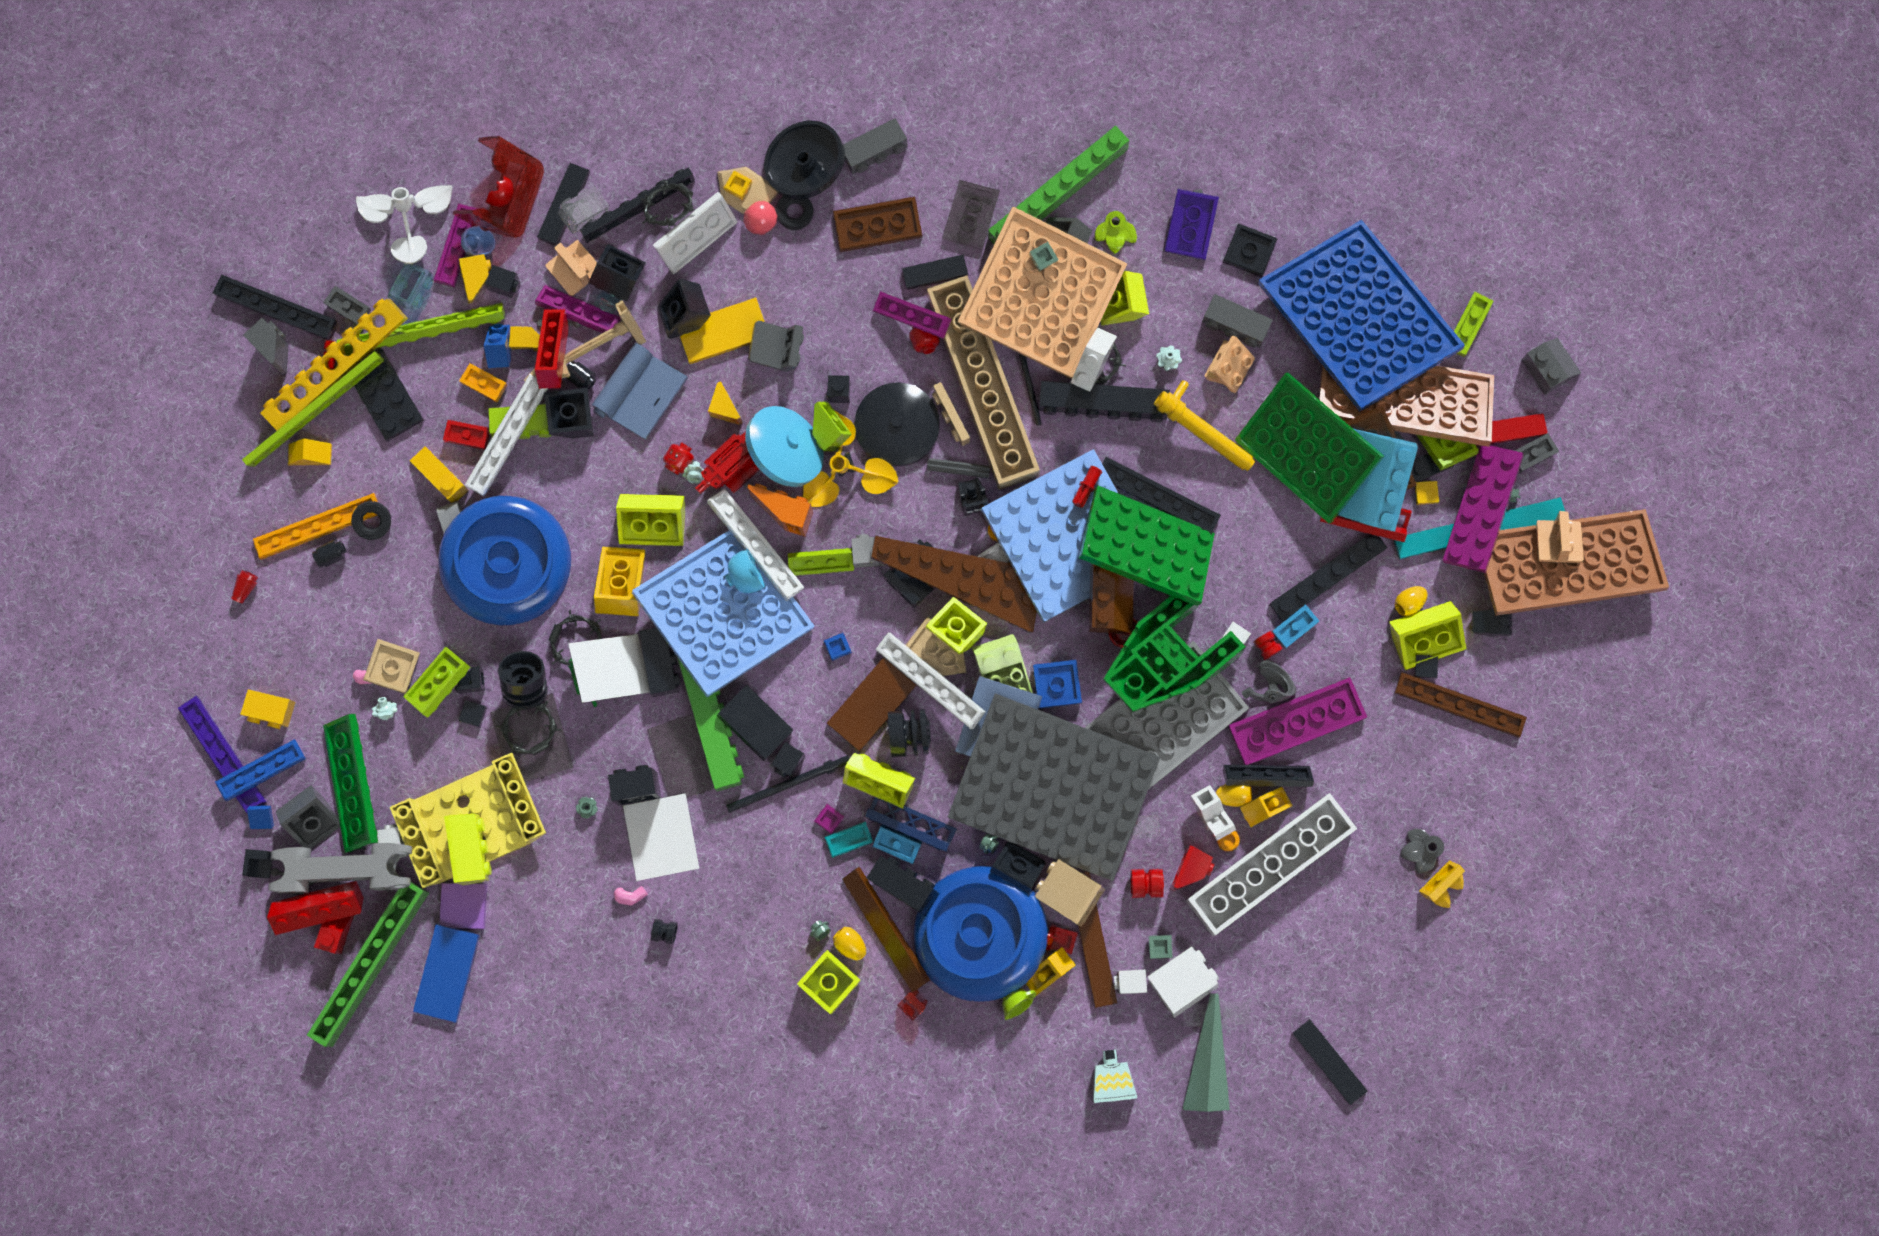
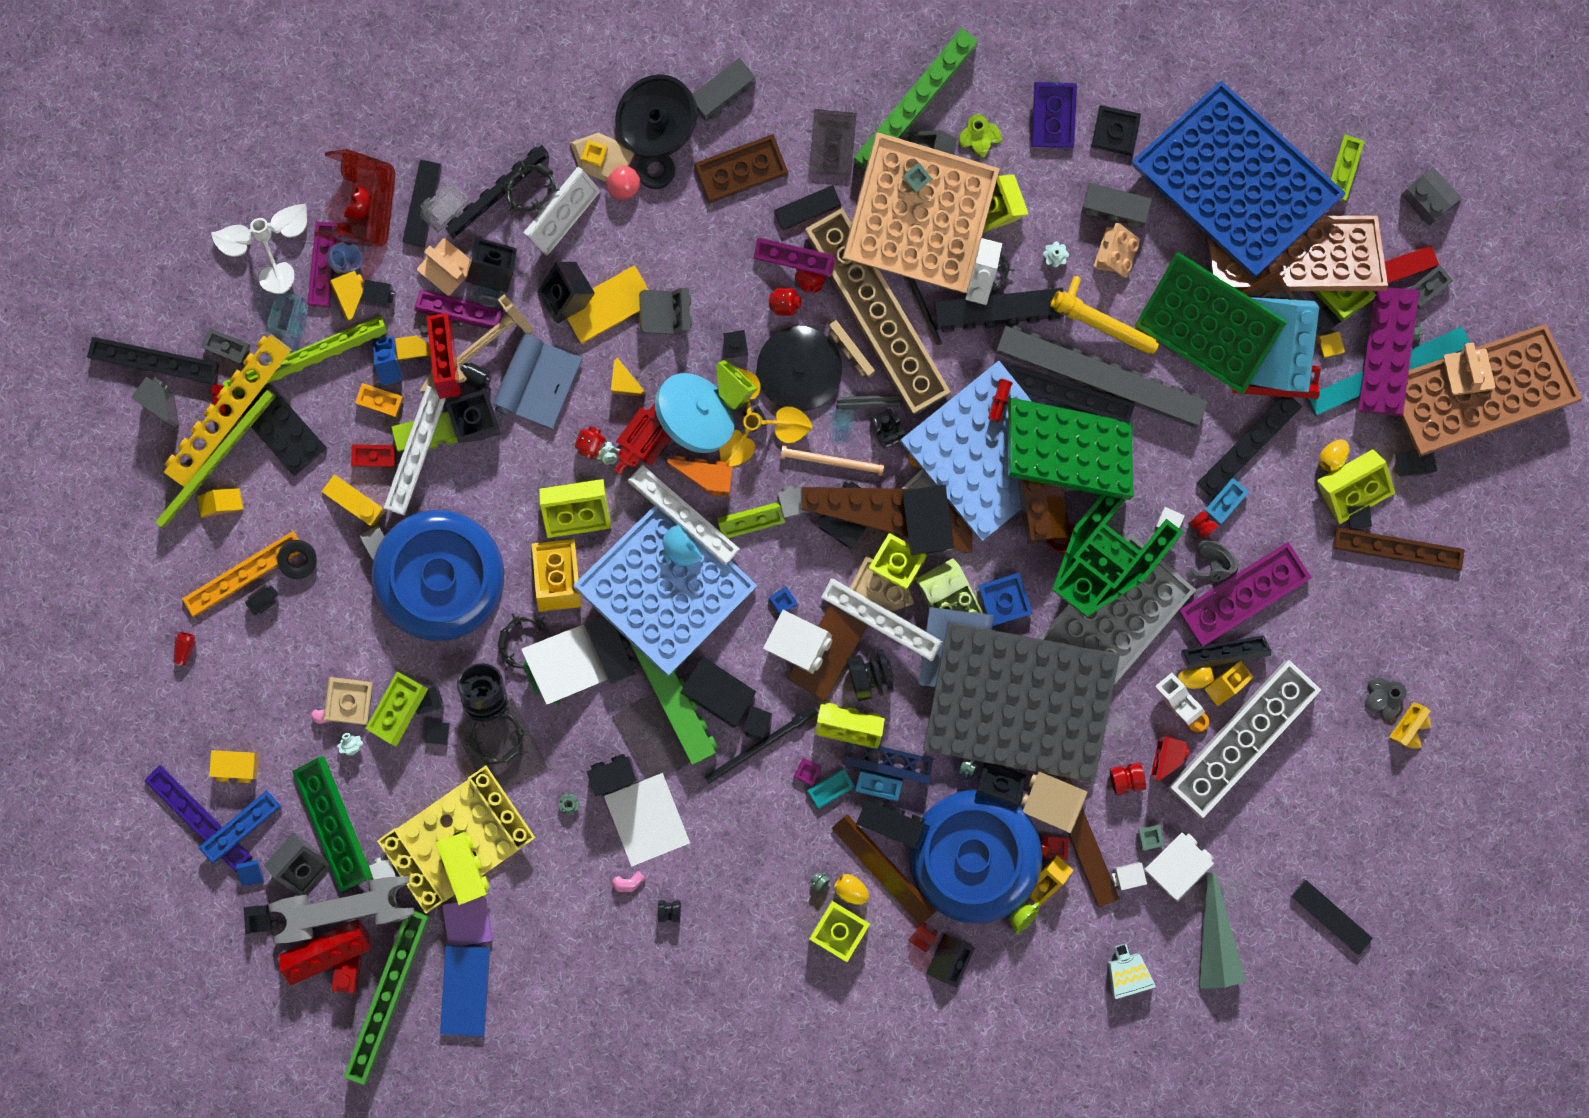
camera: 15 degrees left, 5 degrees up
(843, 688) = (798, 642): none -> white brick
(867, 502) = (818, 458): none -> light nougat bar
(895, 357) = (784, 301): none -> red head
(930, 481) = (842, 420): none -> clear light blue plate
(935, 1034) = (950, 960): none -> black panel
(994, 590) = (928, 520): none -> black tile
(1192, 483) = (1101, 377): none -> dark grey brick

